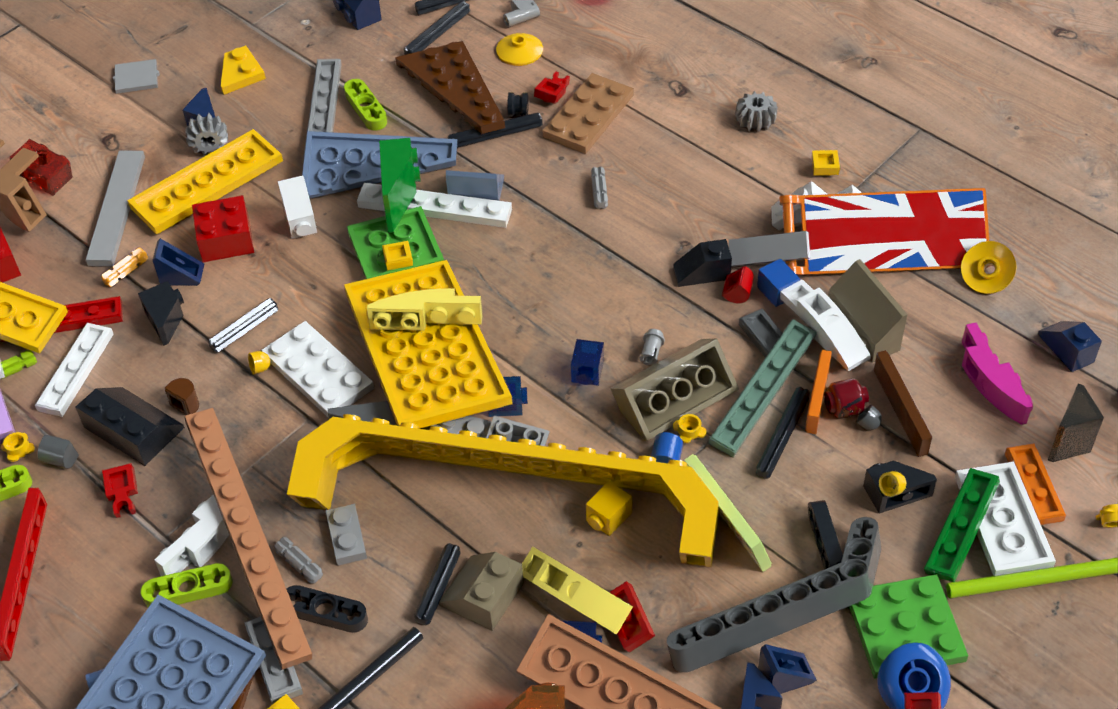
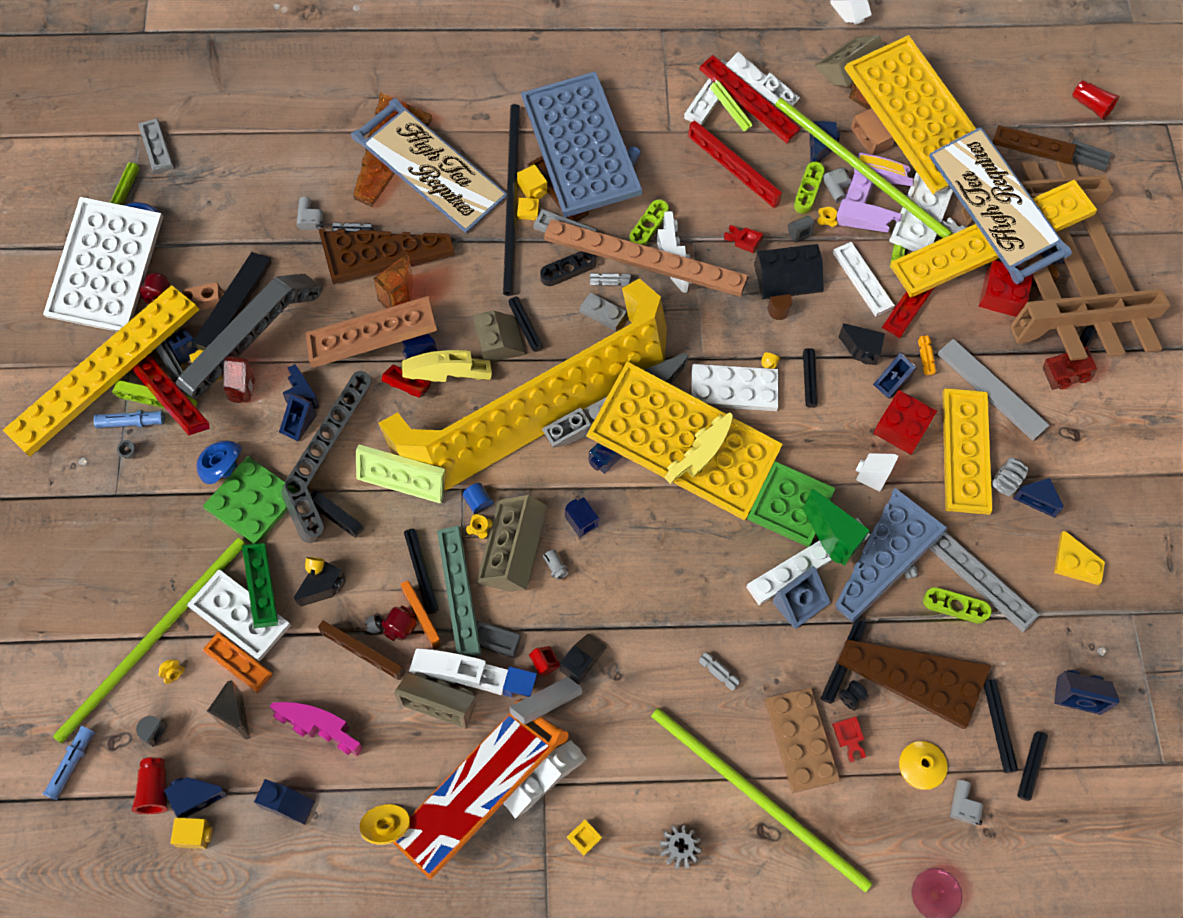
camera: 130 degrees right, 15 degrees up
(136, 76) = (1133, 496): light grey piece -> none
(397, 255) = (776, 490): yellow tile -> none
(663, 110) = (762, 800): none -> lime piece

